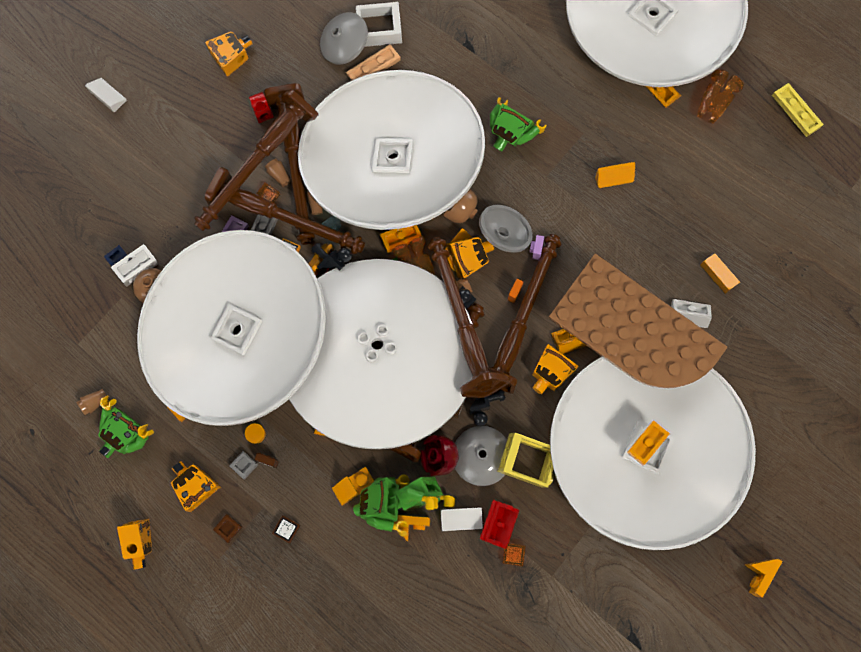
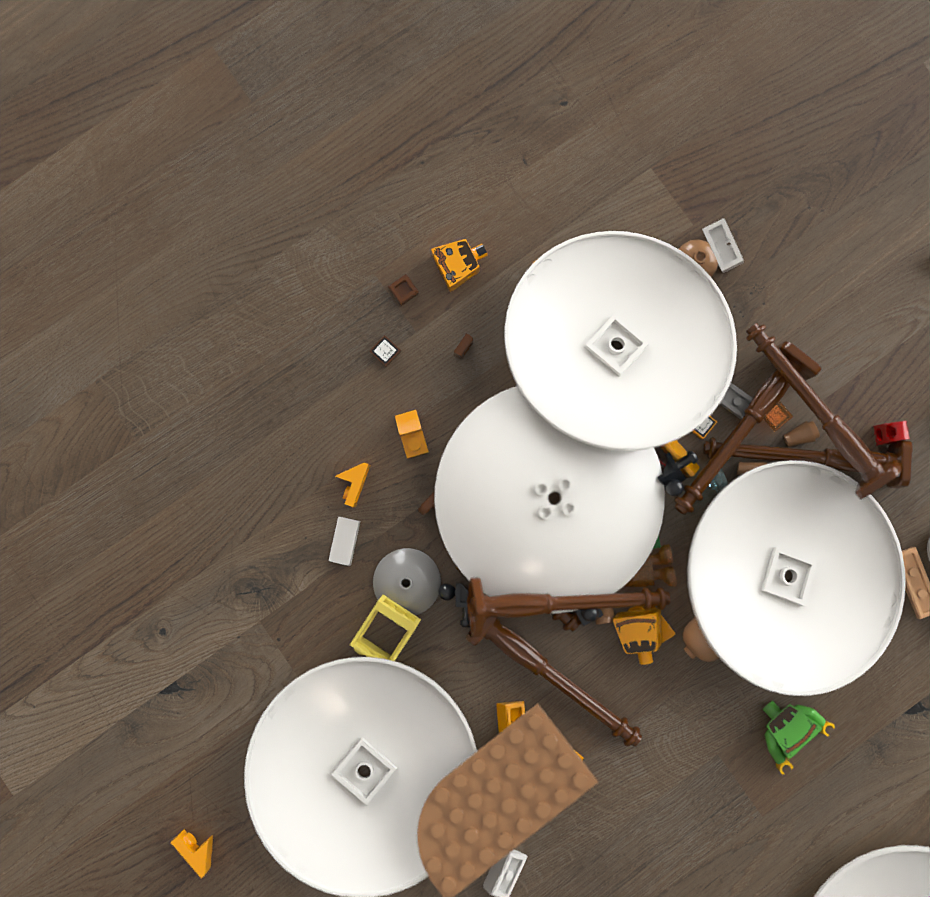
camera: 105 degrees right, 10 degrees up
(91, 402) = (579, 172): medium nougat cone -> none
(116, 255) = (741, 228): dark blue plate -> none
(120, 430) = (538, 196): torso -> none
(135, 541) = (414, 191): light orange torso -> none
(235, 224) = (744, 369): lavender plate -> none
(243, 465) = (466, 321): light grey tile -> none
(255, 433) = (496, 340): light orange tile -> none
(380, 504) = (381, 457): bright green torso -> none
(399, 236) = (680, 551): light orange plate -> none
(421, 492) = (378, 502): bright green torso -> none
(439, 455) = (416, 535): dark red cylinder -> none
(499, 524) = (326, 580): red hinge -> none
(505, 228) = (661, 685): light grey dish -> none
(514, 554) = (292, 587): clear orange tile -> none
(515, 290) = (583, 674): orange tile -> none
(536, 247) = (629, 715): lavender plate -> none
(552, 370) = (479, 689): light orange torso -> none
(615, 175) = (697, 839): light orange slope -> none
(648, 443) = (364, 772): light orange plate -> none

